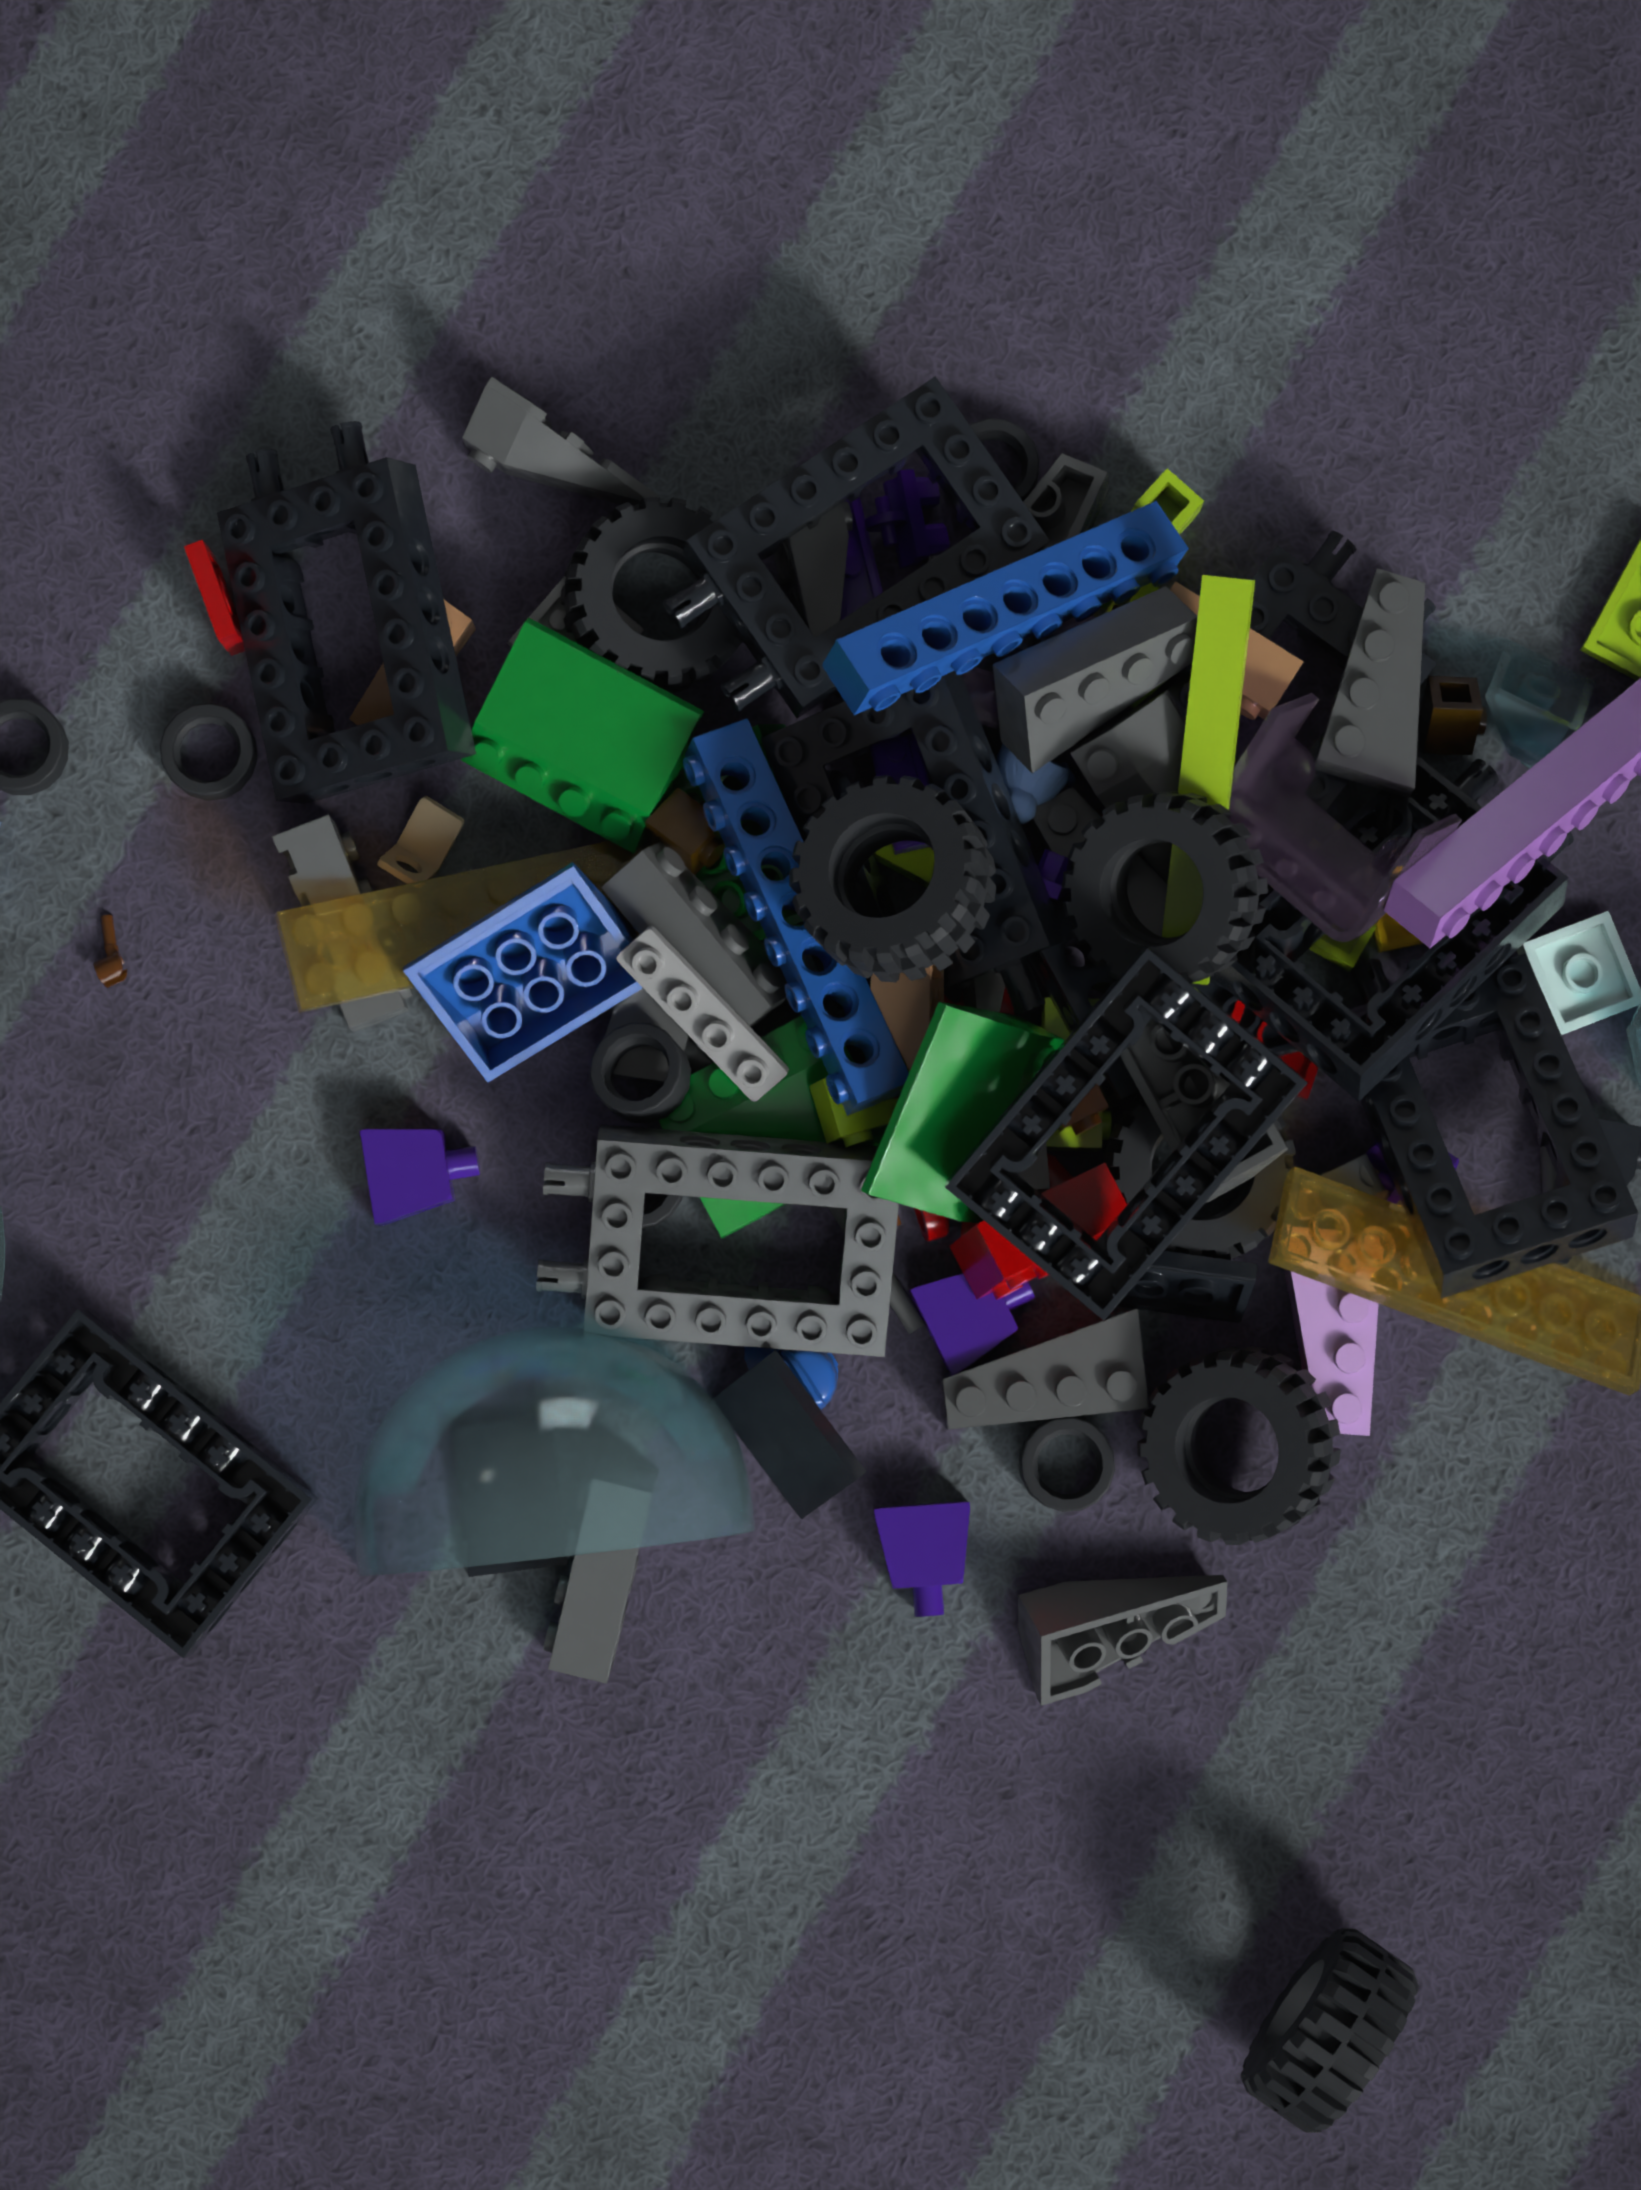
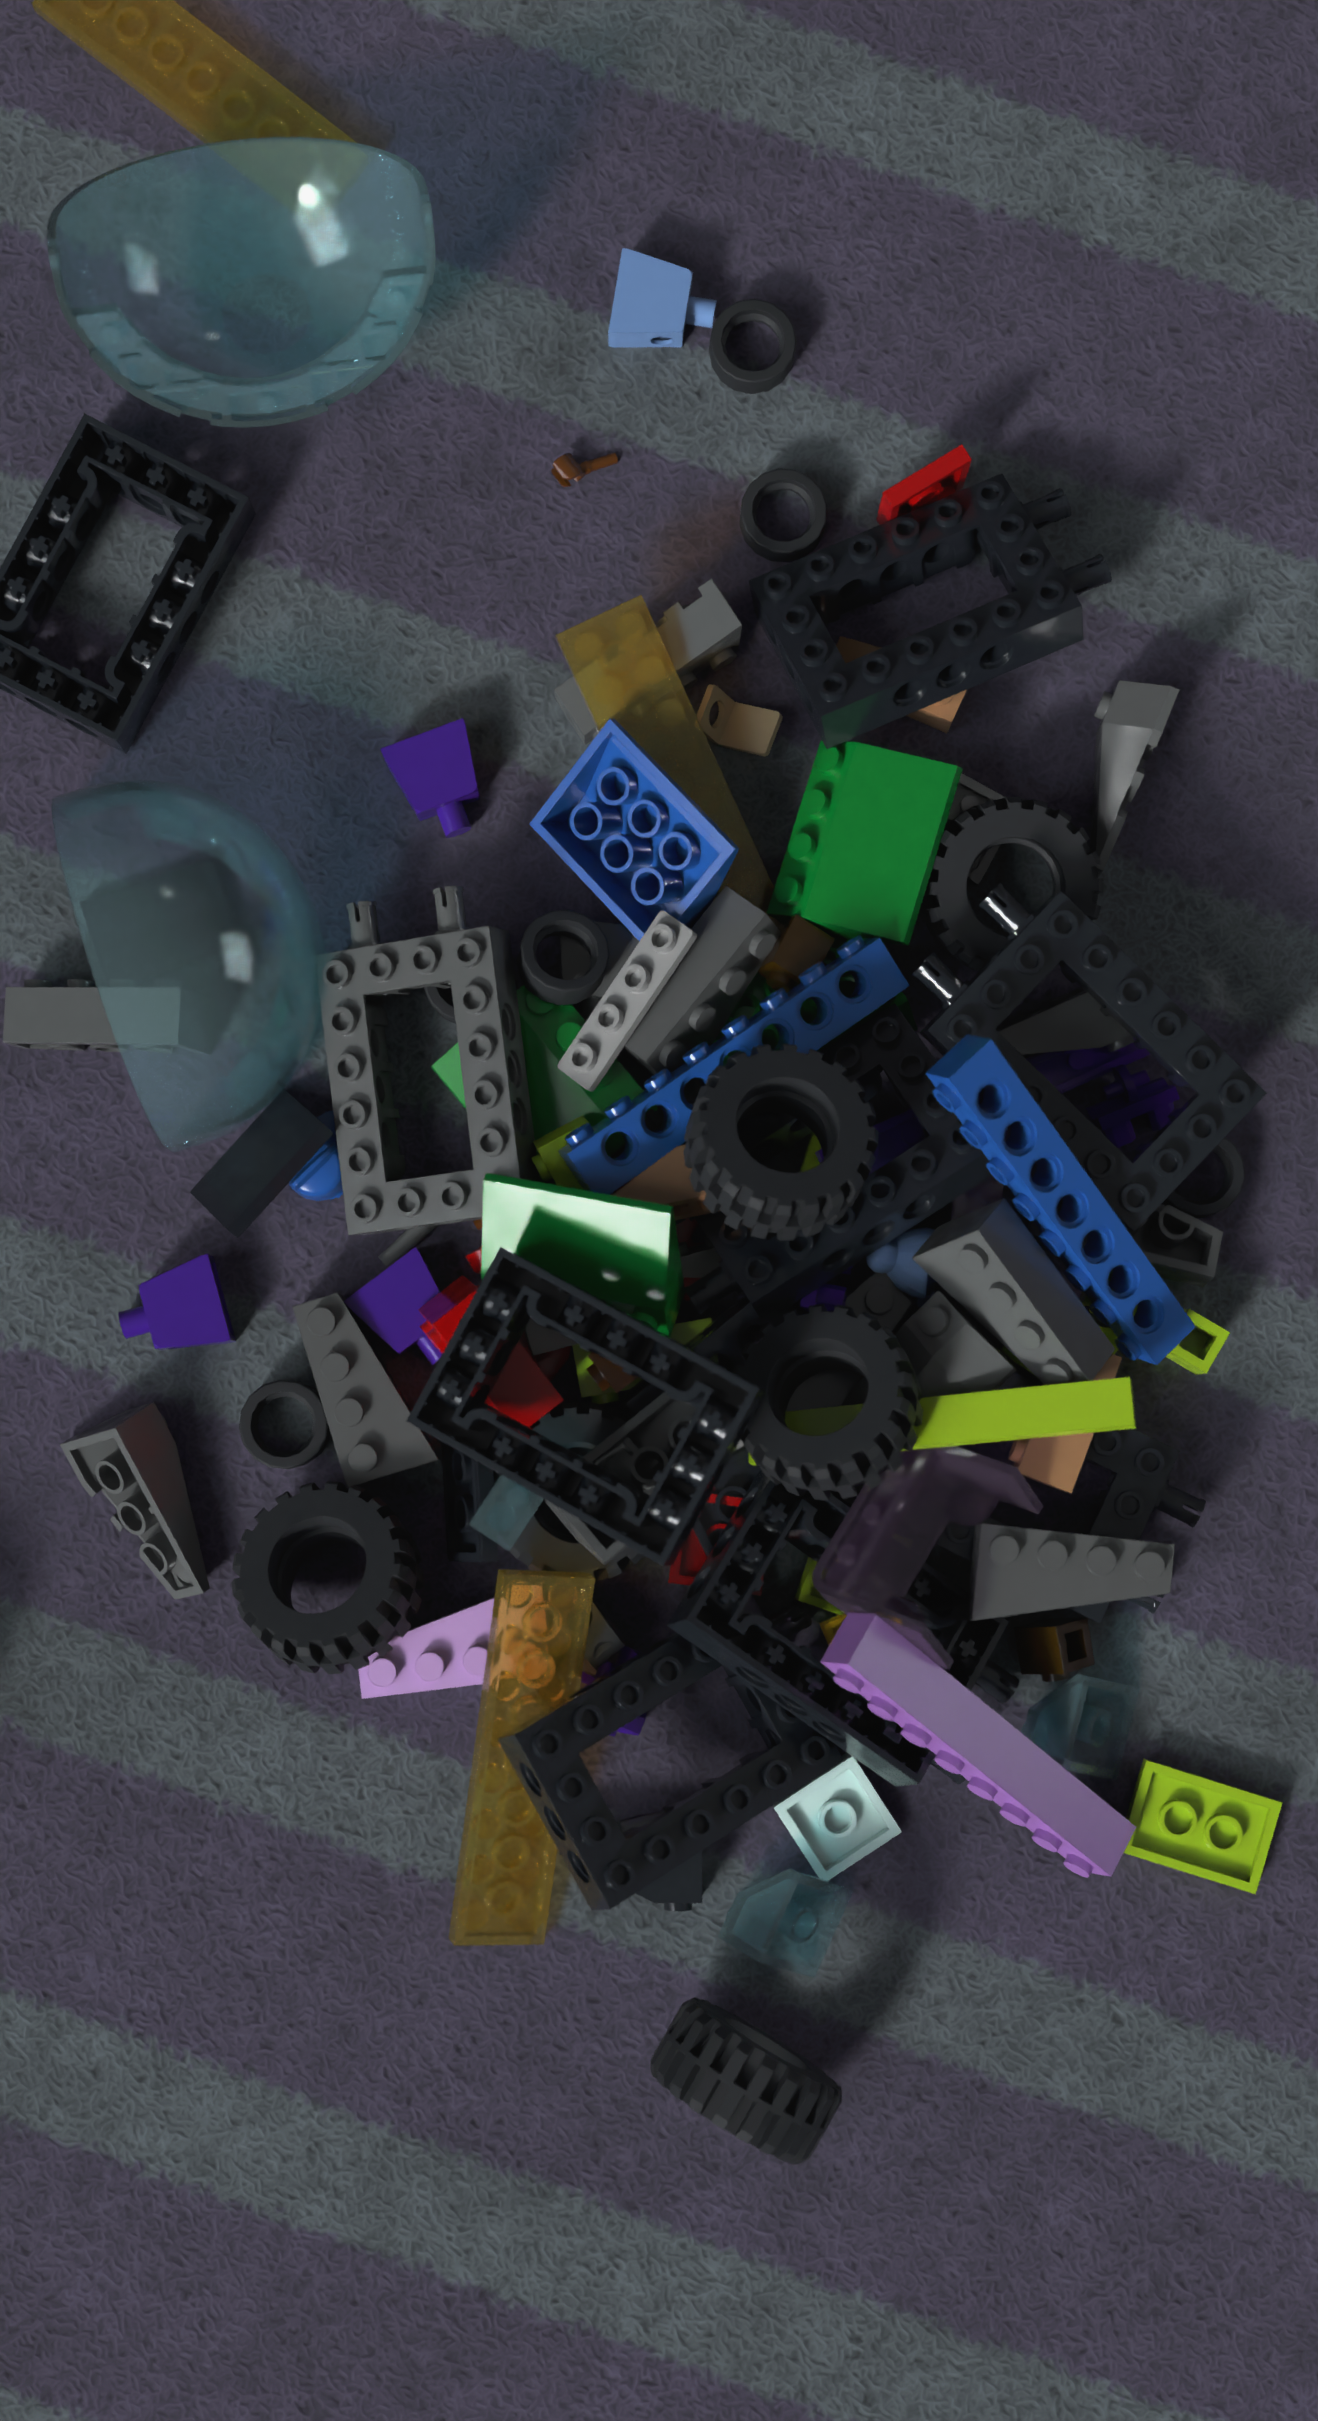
camera: 75 degrees right, 0 degrees up
(1210, 1245) = (505, 1512): none -> clear light blue plate

